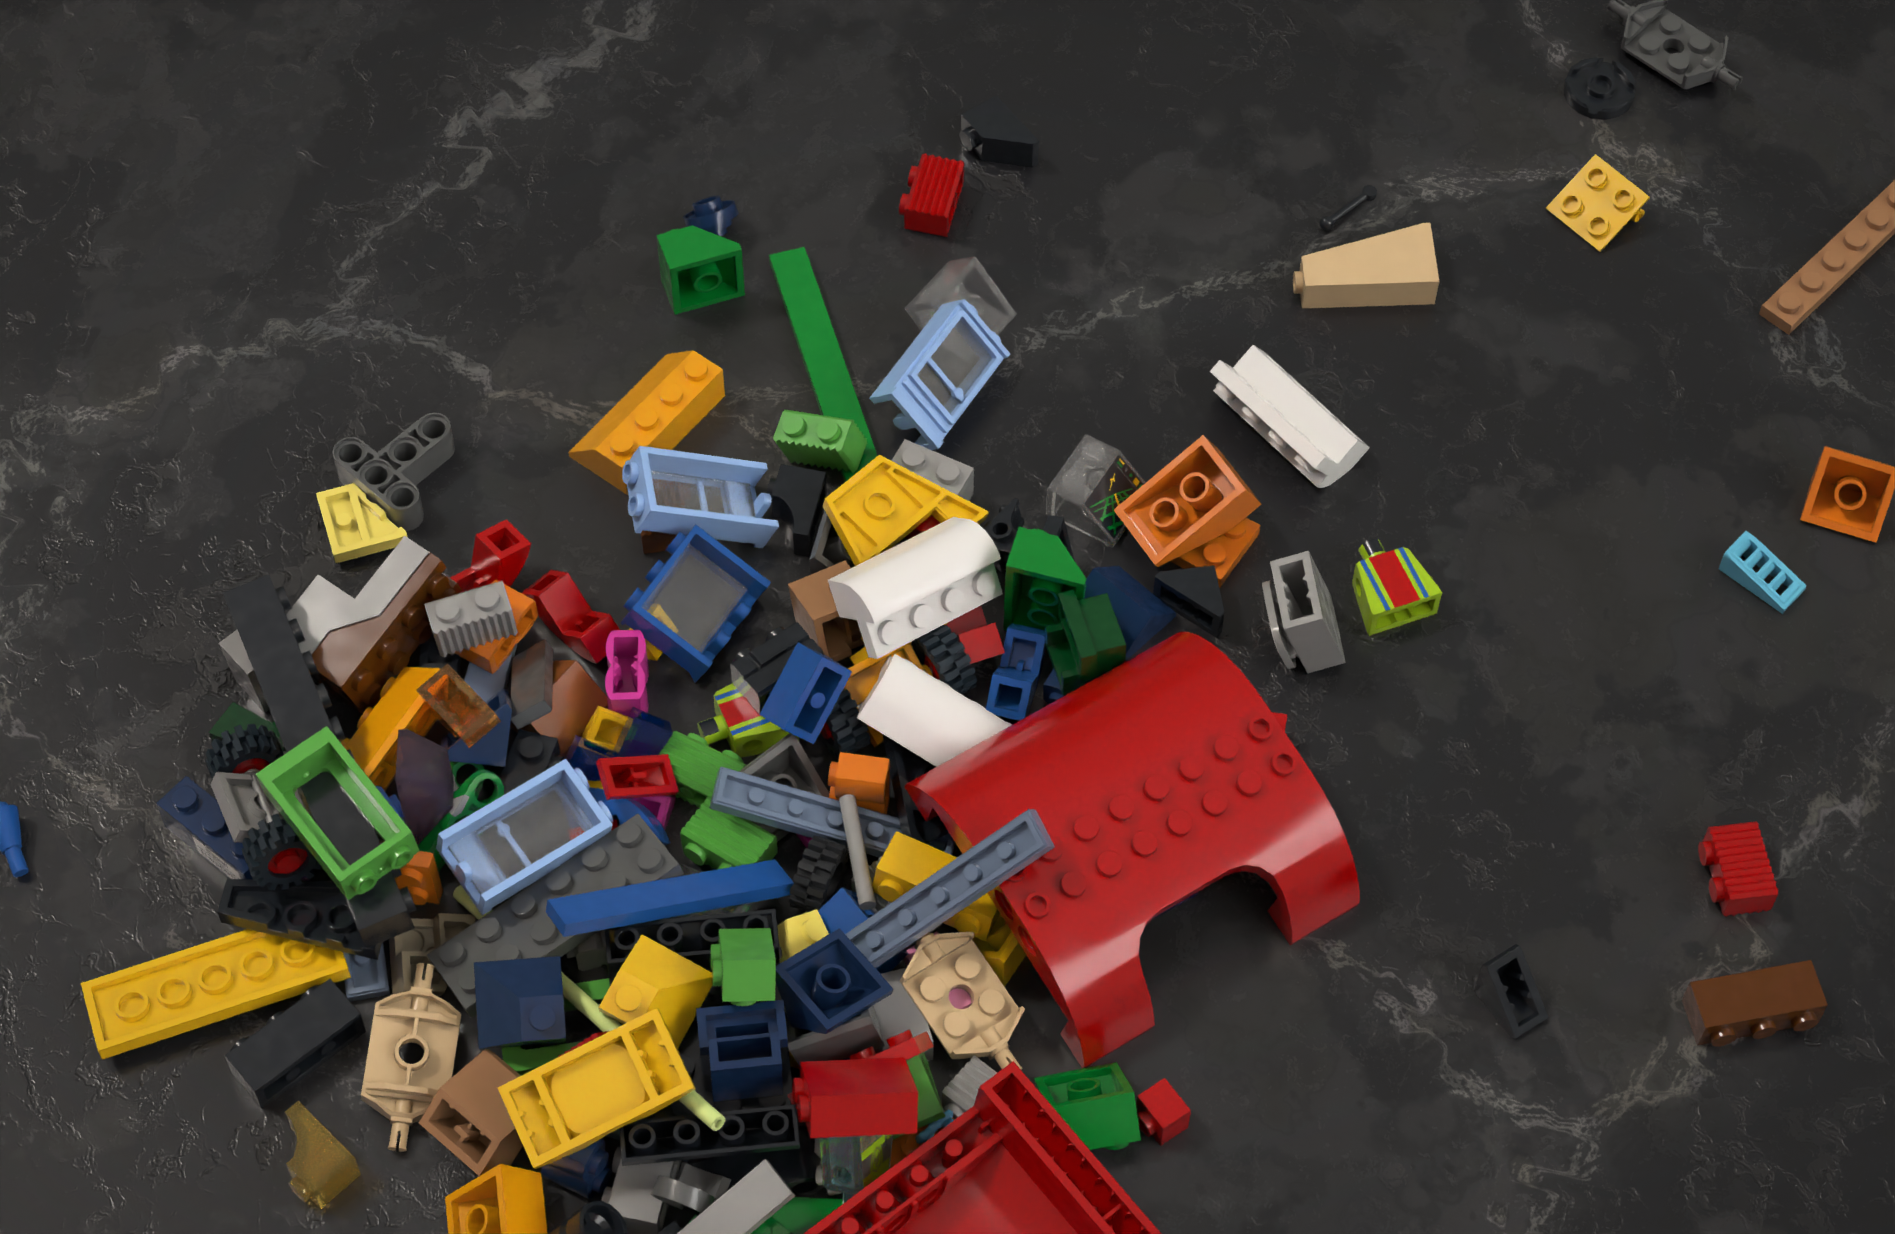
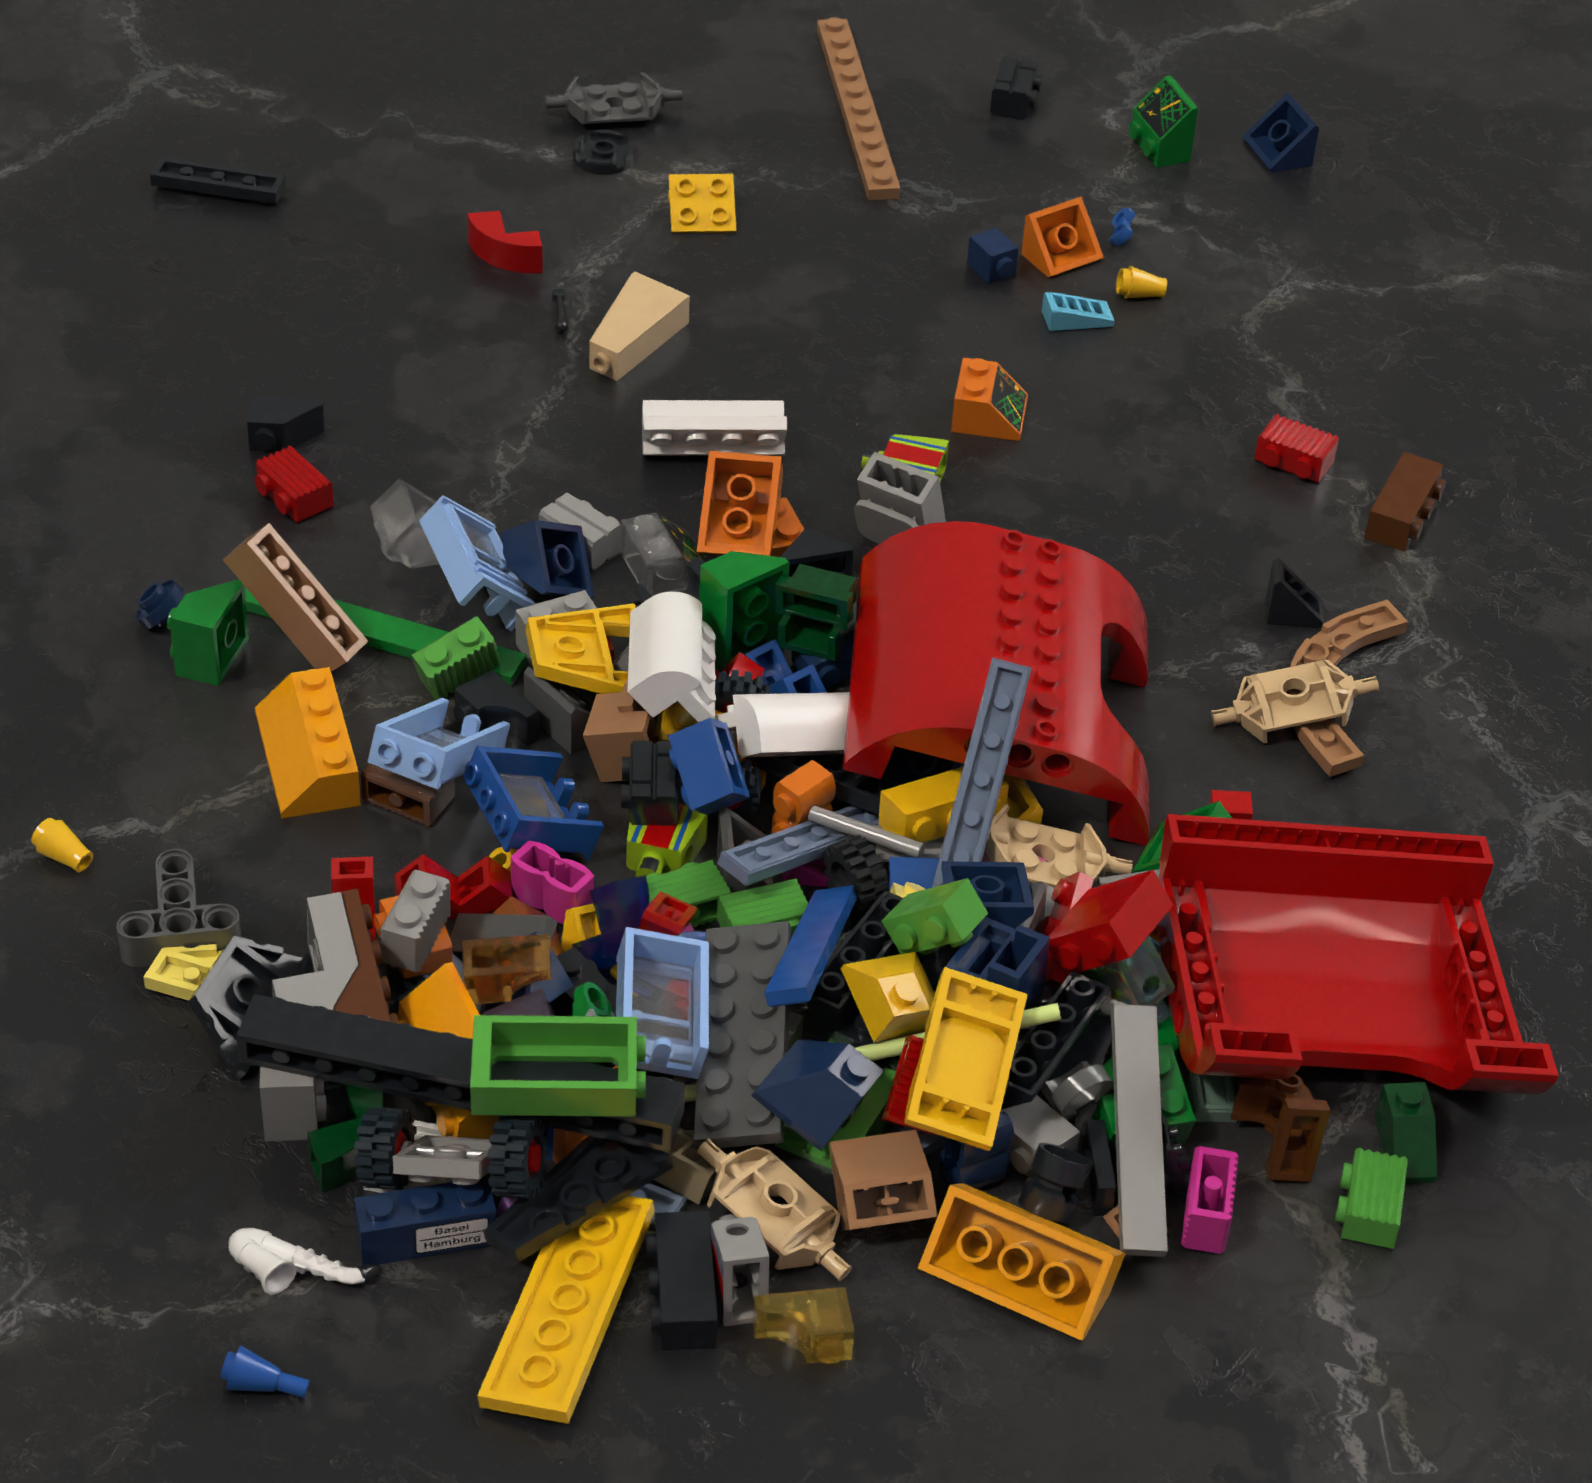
camera: 55 degrees left, 15 degrees down
(121, 759) = (277, 1261): none -> white piece
(326, 1069) = (740, 1250): none -> light grey torso
(340, 555) = (229, 986): none -> black wing
(409, 344) = (60, 844): none -> yellow cone
(757, 295) = (295, 599): none -> medium nougat brick
(991, 422) = (548, 557): none -> dark blue slope
(1067, 412) = (600, 532): none -> light grey brick
(1382, 125) = (508, 251): none -> red brick
(1382, 1098) = (1266, 706): none -> tan plate
(1430, 1064) = (1335, 641): none -> medium nougat plate
(1547, 587) = (988, 401): none -> orange slope
(1766, 457) = (992, 255): none -> dark blue brick
(1857, 595) = (1139, 284): none -> yellow cone

